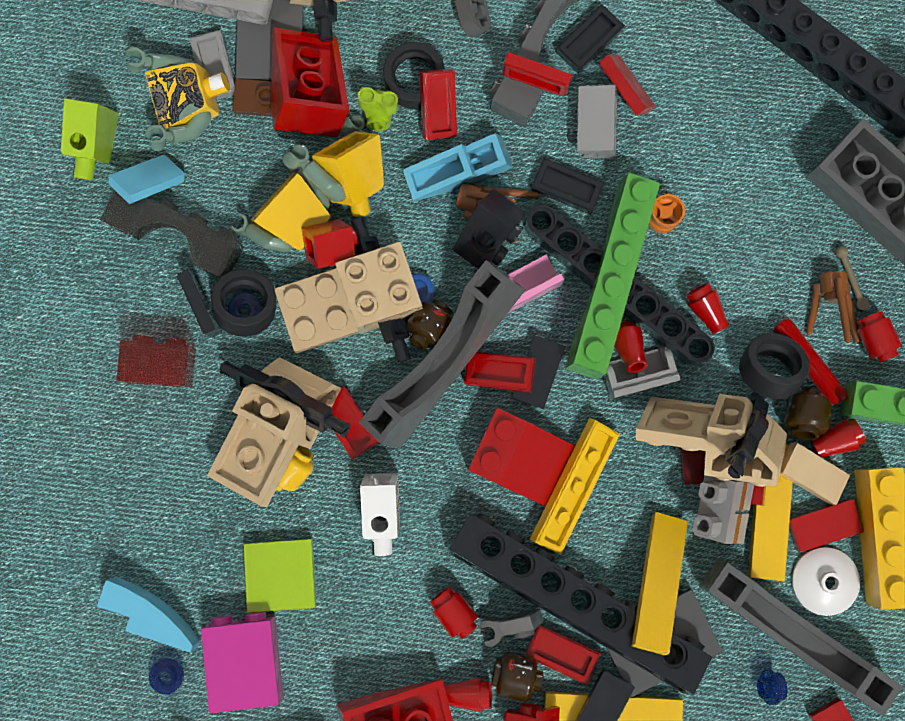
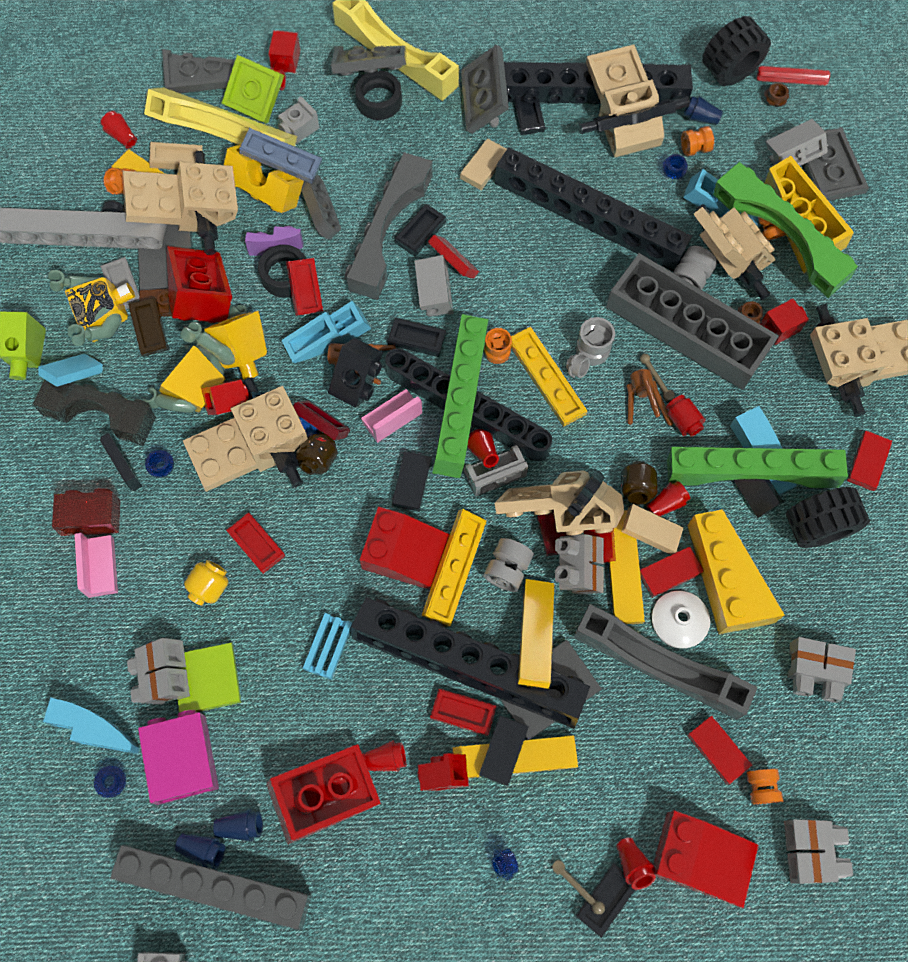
camera: 10 degrees left, 15 degrees down
(164, 425) = (96, 565): none -> bright pink panel
(220, 580) = (159, 672): none -> light grey hips
(243, 130) = (148, 327): none -> dark brown tile
(249, 280) = (154, 439): black tyre -> none
(275, 415) = (188, 538): tan piece -> none
(378, 107) = (256, 294): lime plate -> none
(380, 498) = (285, 594): white torso -> none
(406, 583) = (327, 618): none -> medium azure tile
(420, 29) = (260, 242): none -> medium lavender slope
(437, 280) = (321, 420): none -> dark red tile
(454, 612) = (362, 687): red brick -> none
(481, 309) = (355, 427): dark grey arch -> none
(500, 372) = (379, 483): red tile -> none
(516, 676) = (424, 733): dark brown head -> none
(519, 624) = (419, 688): dark grey plate -> none
(536, 74) = (378, 252): red tile -> none
(646, 484) = (508, 566): none -> light grey wheel
(707, 306) = (542, 411): red cone -> none
(719, 258) = (547, 377): none -> yellow tile
(759, 251) = (578, 365): none -> light grey plate
(772, 687) = (649, 712): clear blue plate -> none
(783, 349) = (601, 458): black tyre -> none
(786, 225) = (596, 340): none -> light grey wheel
(819, 371) = (634, 442): red axle -> none

